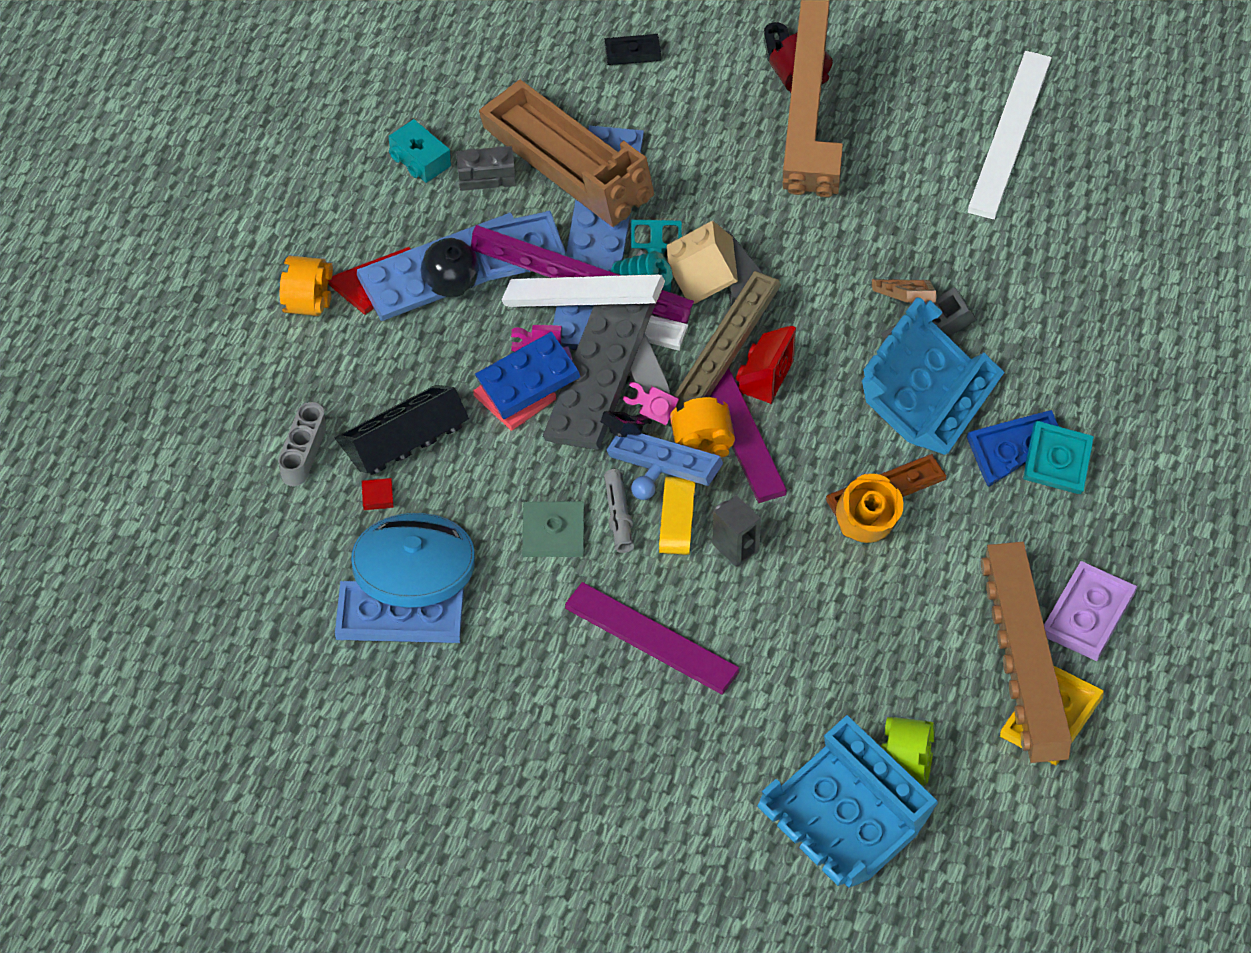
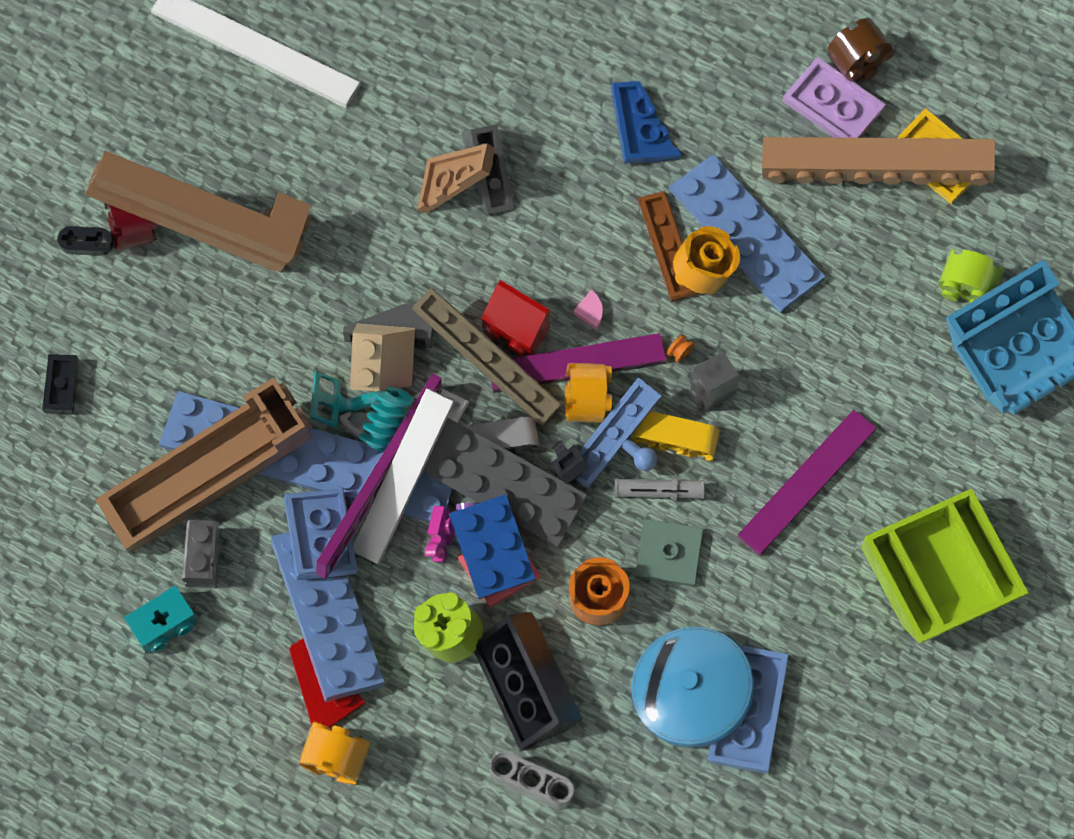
camera: 80 degrees left, 15 degrees up
(377, 494) = (600, 715): red tile -> none
(441, 352) = (447, 627): none -> lime brick
(449, 267) = (343, 603): black cylinder -> none
(497, 468) = (615, 587): none -> orange brick
(573, 758) = (943, 567): none -> lime slope
(655, 403) = (545, 432): plate -> none
(772, 508) = (680, 348): none -> orange bush
(799, 431) = (590, 310): none -> bright pink tile
(917, 553) = (765, 249): none -> medium blue plate
(926, 381) = (570, 176): dark azure slope -> none
(1058, 457) = (667, 89): teal plate -> none
(1151, 617) = (860, 50): none -> reddish brown brick

